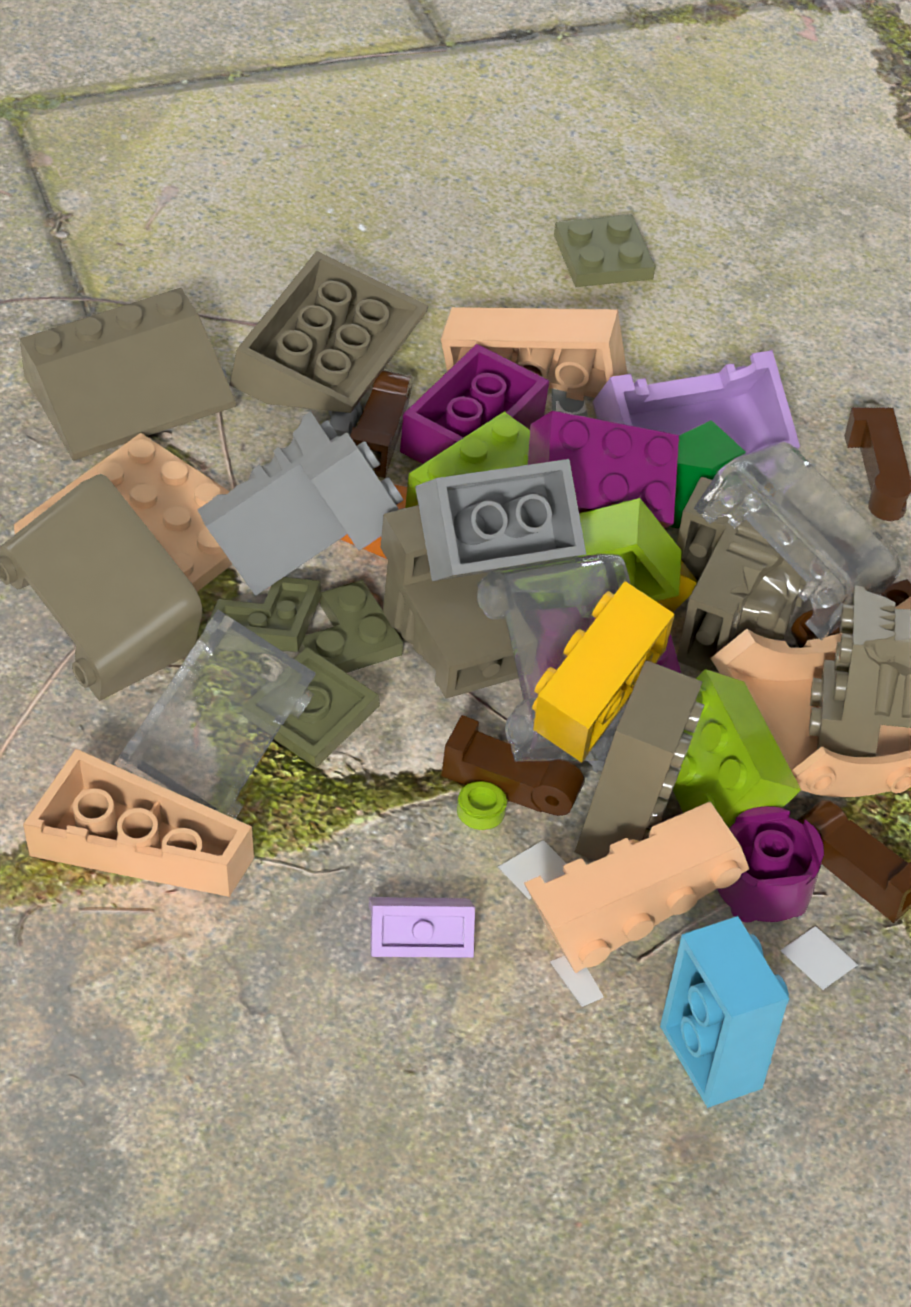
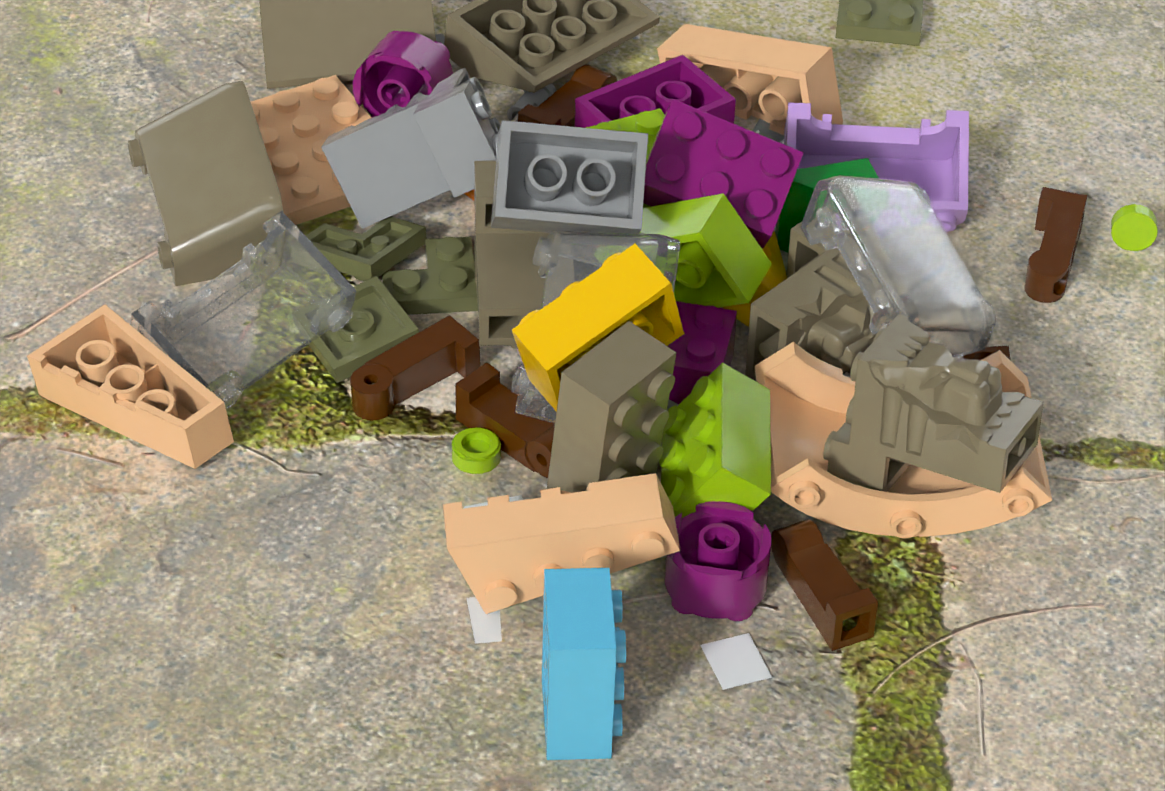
camera: 25 degrees right, 5 degrees down
(221, 428) = (398, 70): none -> magenta brick
(383, 732) = (413, 367): none -> reddish brown leg
(422, 927) = (352, 535): lavender panel -> none

